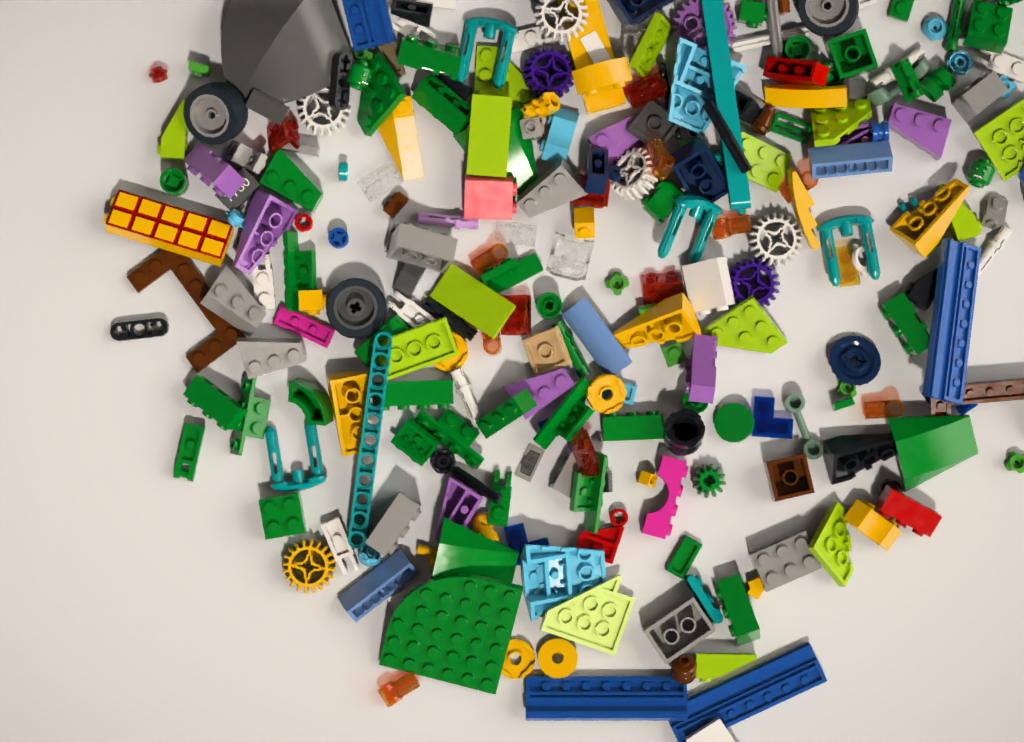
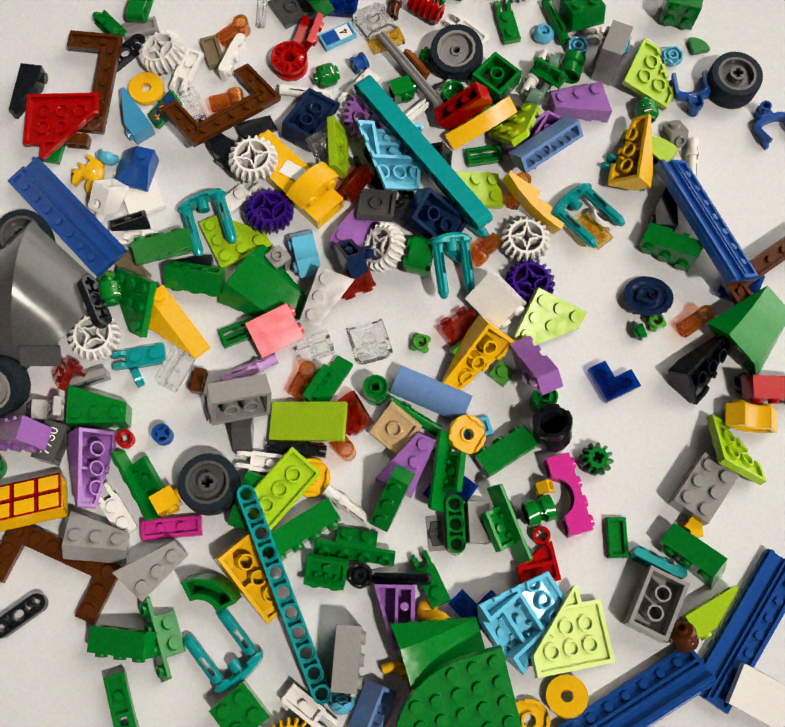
camera: 35 degrees left, 15 degrees down
(235, 218) = (59, 465): medium azure plate -> none
(356, 152) = (140, 357): none -> teal hinge
(451, 169) = (237, 333): none -> green tile
(489, 135) = (246, 278): lime tile -> none
(541, 106) = (277, 234): yellow animal -> none
(556, 458) = (457, 515): none -> green beam
(584, 222) = (365, 308): yellow brick -> none
(585, 454) = (481, 492): clear red bracket -> none
(629, 496) = (539, 510): none -> green wheel
(660, 159) = (400, 219): clear orange piece -> none
(727, 137) = (441, 172): black axle -> none
(734, 422) = (586, 399): green tile -> none
(763, 121) = (459, 160): reddish brown cone -> none
(789, 477) = (660, 417): reddish brown brick -> none
(812, 448) = (623, 358): sand green piece -> none
(825, 388) = (639, 331): none -> green plate
(842, 403) = (661, 335): green tile -> none
(879, 131) = (554, 111): blue wheel -> none

